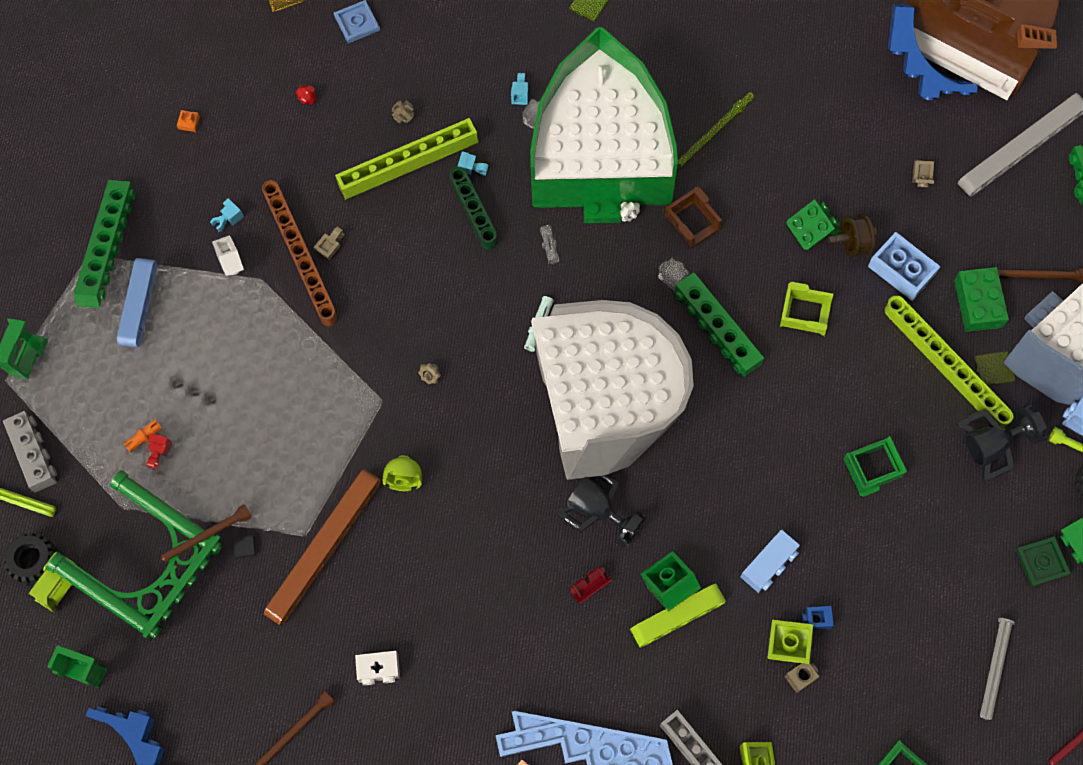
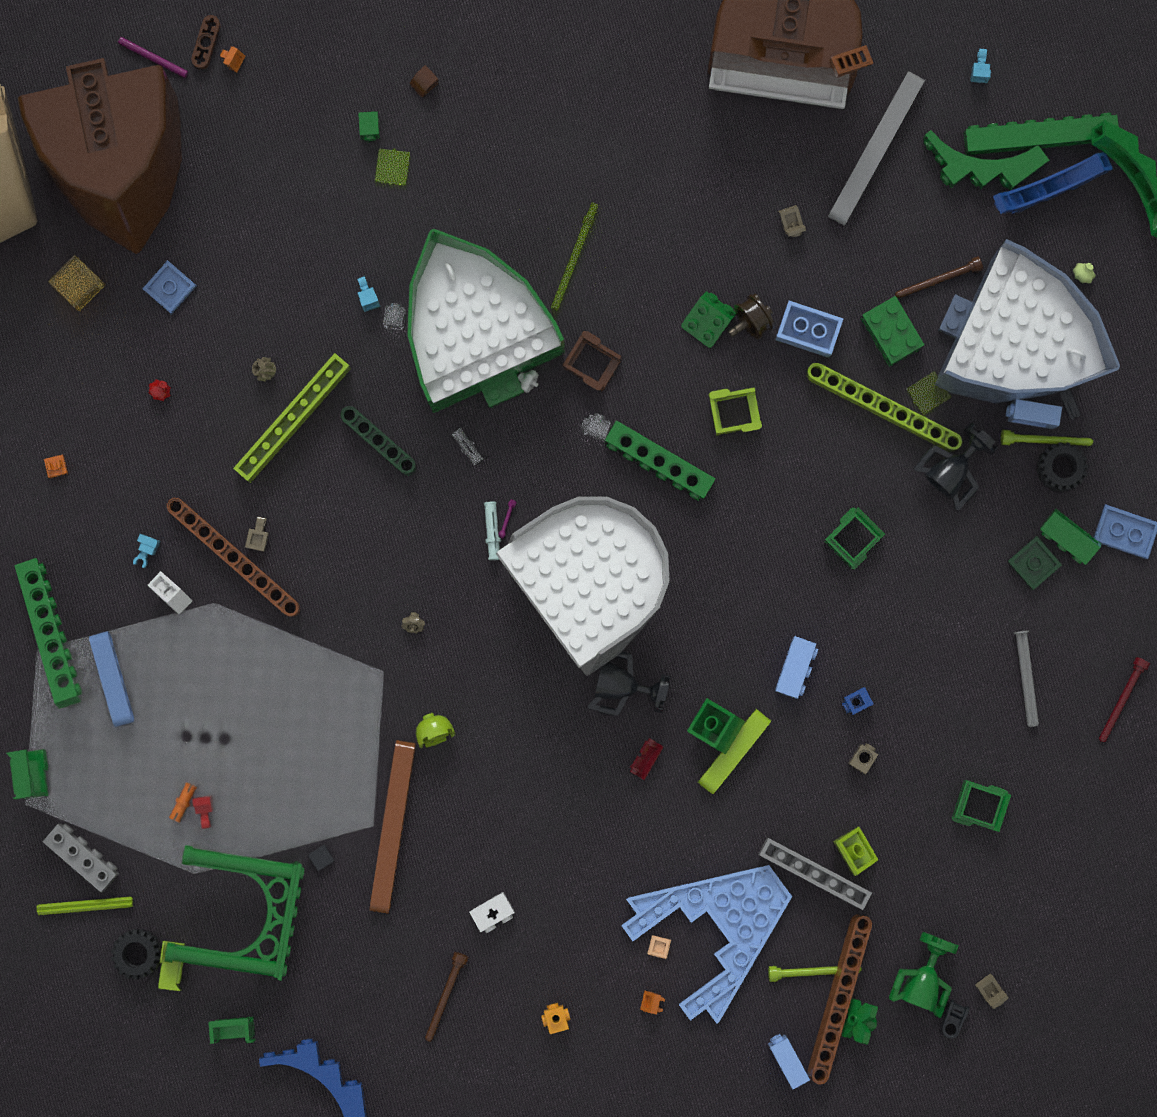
camera: 25 degrees left, 15 degrees up
(241, 514) = (310, 835): reddish brown piece -> none
(467, 162) = (352, 397): medium azure piece -> none
(790, 641) = (842, 735): lime slope -> none
(903, 40) = (764, 117): blue arch -> none

